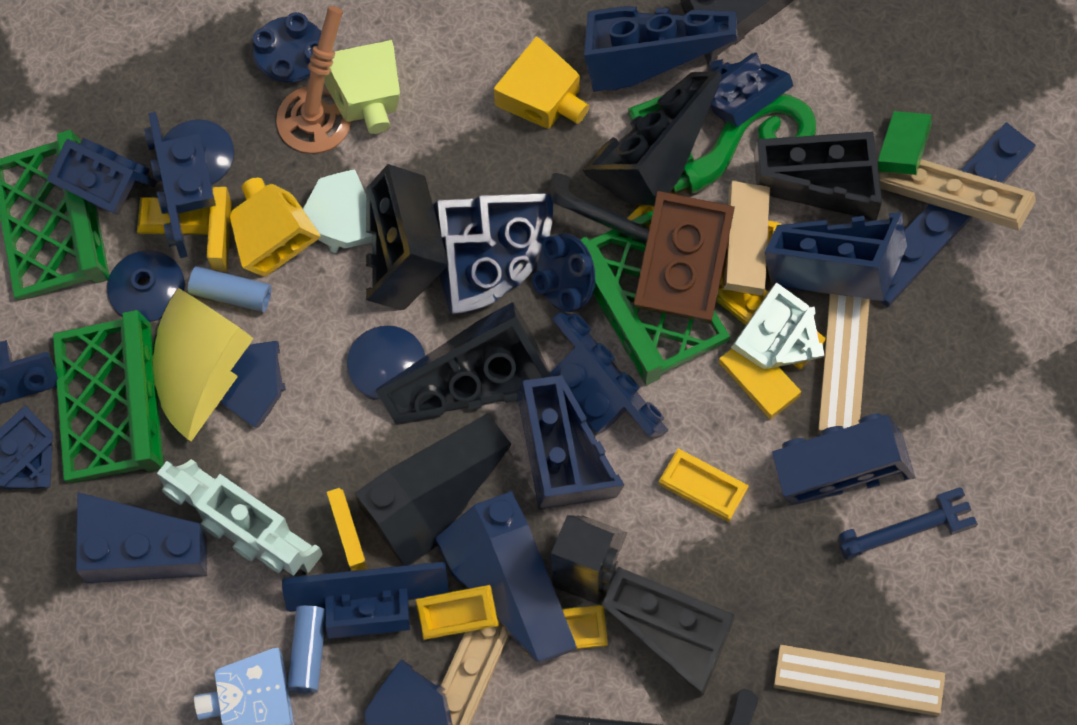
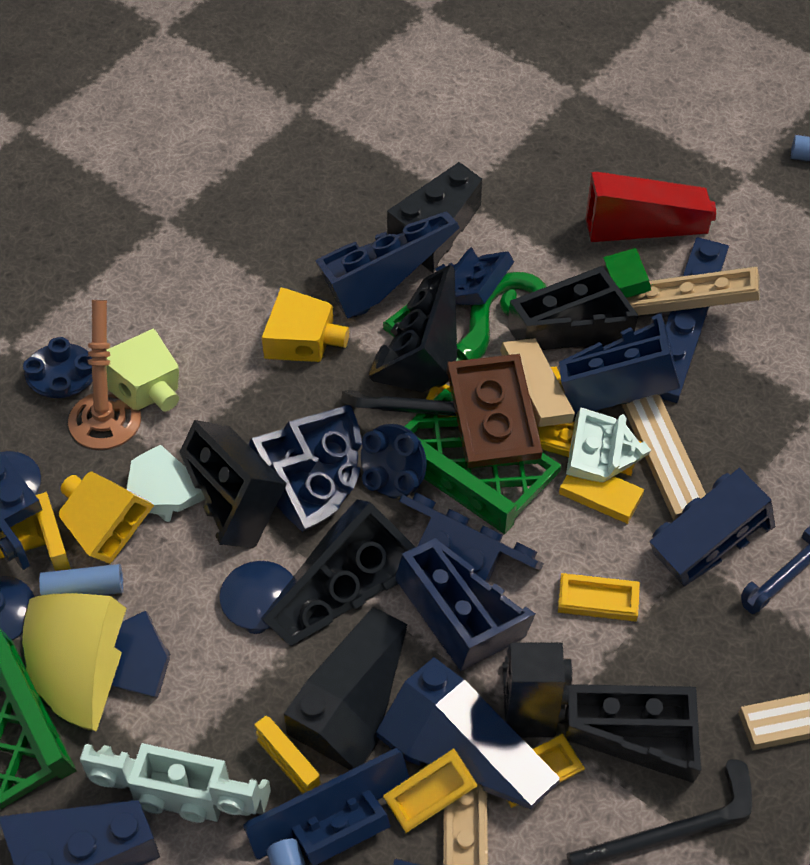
camera: 25 degrees left, 15 degrees down
(965, 72) = (645, 208): none -> red slope

